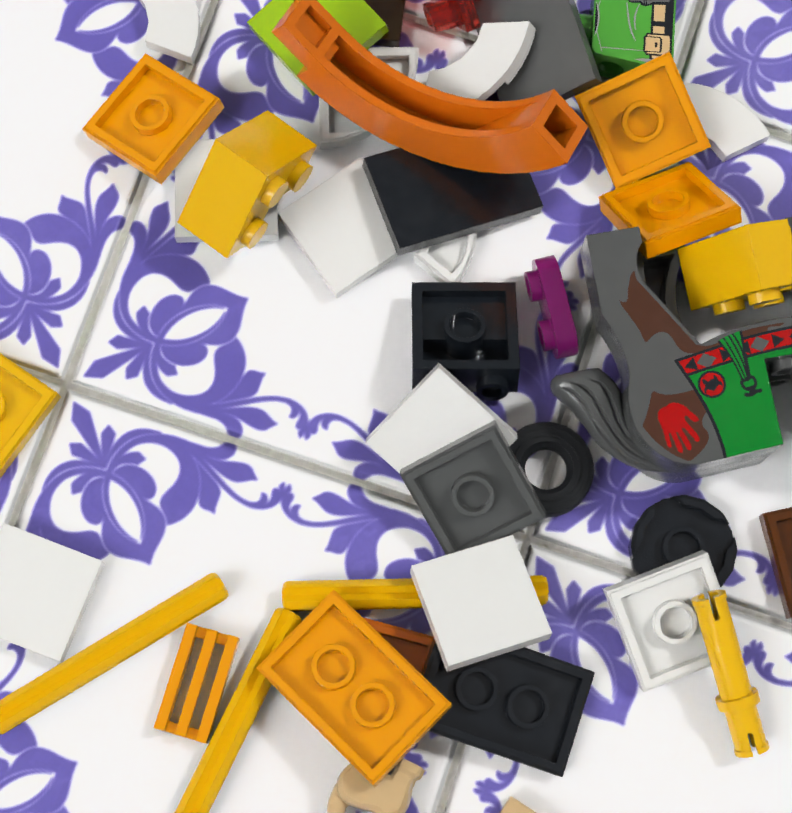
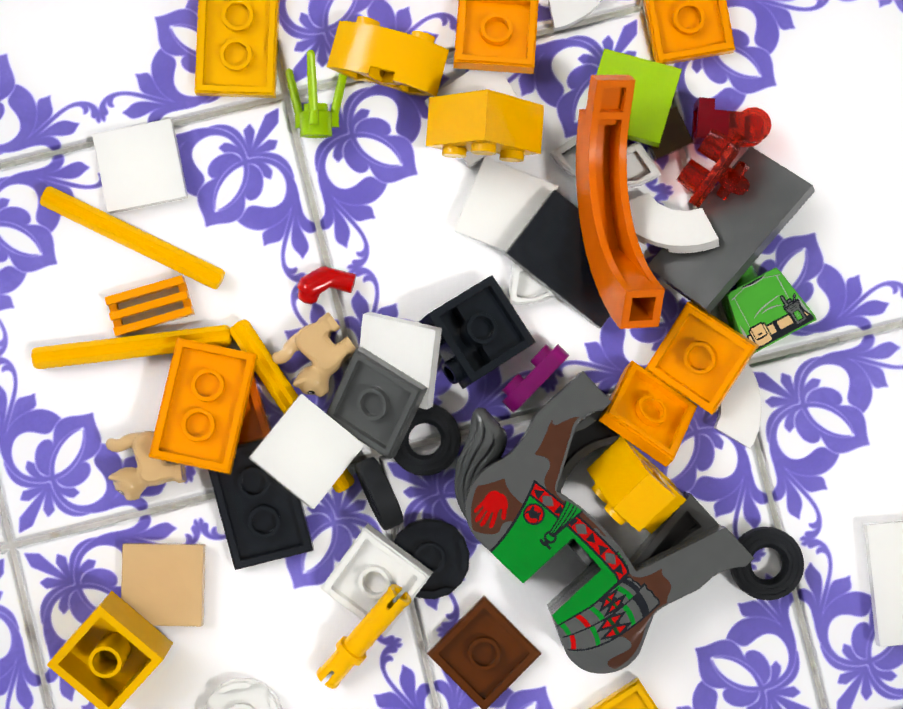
camera: 60 degrees right, 10 degrees up
(102, 243) = (388, 57): none -> yellow brick
(115, 364) = (315, 119): none -> lime plant
(296, 470) = (321, 279): none -> red arm
(376, 519) = (324, 355): none -> tan animal
(578, 551) = (379, 493): none -> black tyre

